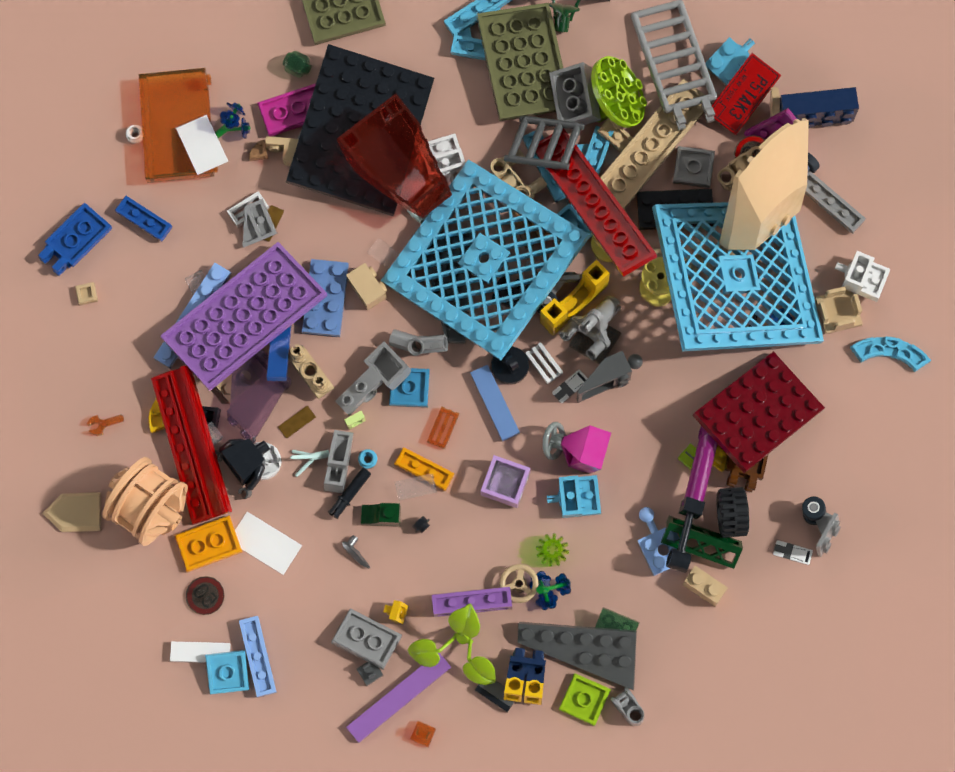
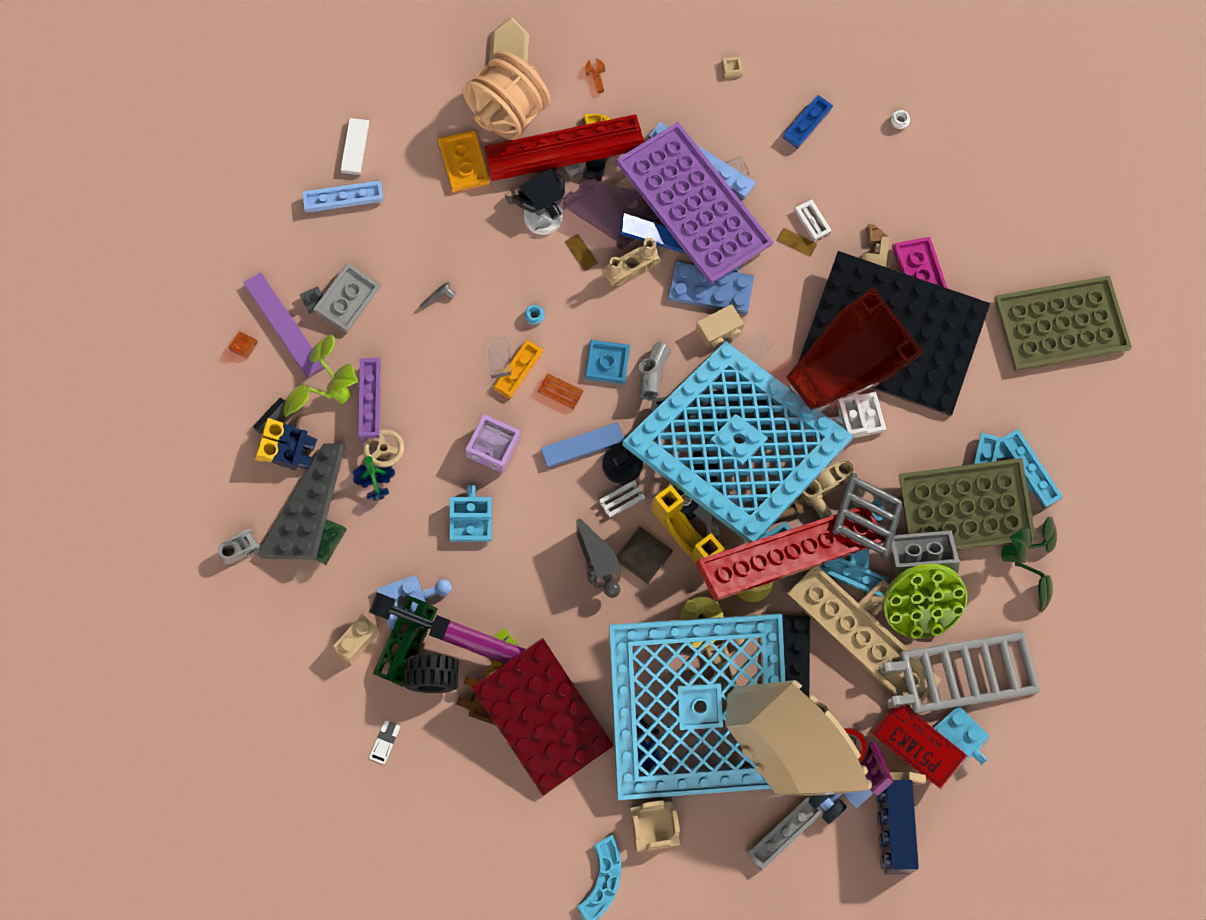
camera: 85 degrees right, 5 degrees down
(74, 238) = (790, 58): blue tile -> none
(167, 103) = (907, 158): clear orange windscreen -> none
(202, 144) = (884, 178): white sticker -> none
(205, 595) = (412, 155): clear smoke piece -> none
(227, 672) = (331, 168): medium azure tile -> none
(231, 121) = (908, 203): clear blue plant -> none
(257, 223) = (795, 225): light grey wing -> none
(266, 543) = (458, 215): white sticker -> none
(297, 64) = (972, 277): clear green head -> none
(312, 456) = (543, 259): light aqua plant -> none
(338, 461) = (534, 285): light grey slope -> none
(349, 493) = (500, 294): black axle -> none
(355, 420) = (576, 304): yellowish green tile -> none
(381, 514) = (473, 323): dark green arch -> none
(384, 368) = (625, 334): light grey plate -> none
(396, 611) = (370, 328): yellow tile -> none
(421, 525) = (458, 360): black plate -> none
(557, 554) = (412, 479): clear neon green gear -> none
(569, 386) = (593, 521): sticker -> none
(582, 449) = (521, 521): dark pink piece -> none
(584, 699) = (255, 505): lime tile -> none
(593, 325) = (656, 551): light grey wheel -> none
(693, 167) = (837, 683): light grey tile -> none
(815, 514) = (423, 770): light grey plate -> none
(864, 276) = (692, 858): white plate -> none

